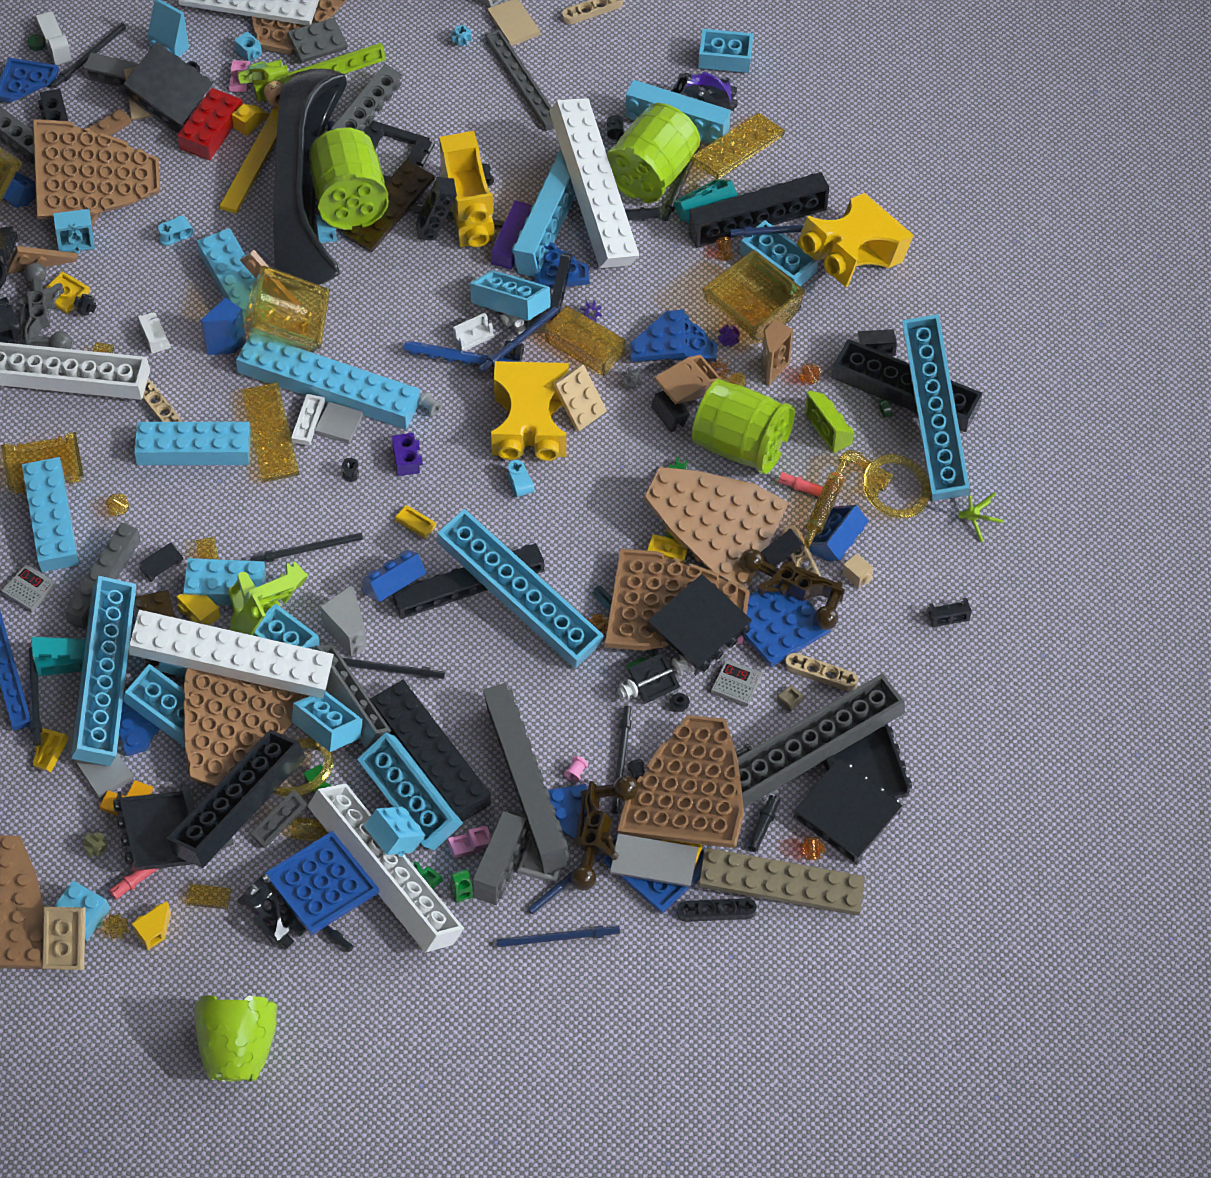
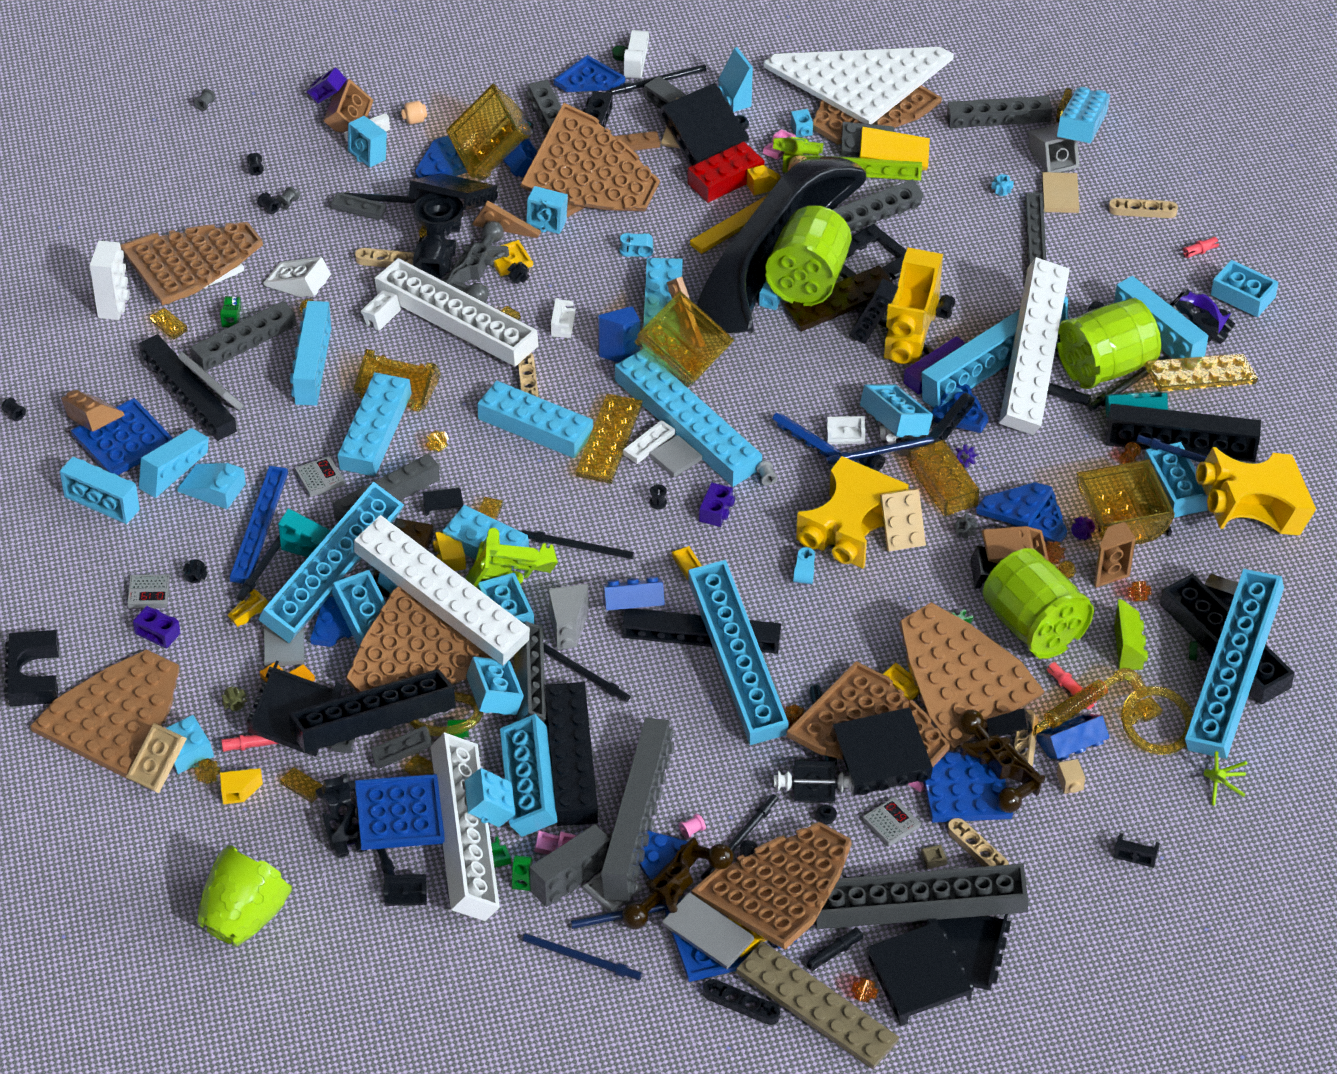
camera: 30 degrees right, 10 degrees down
(346, 37) = (893, 146): none -> yellow tile
(367, 951) = (405, 890): none -> black hinge
(664, 25) = (1200, 247): none -> coral pin

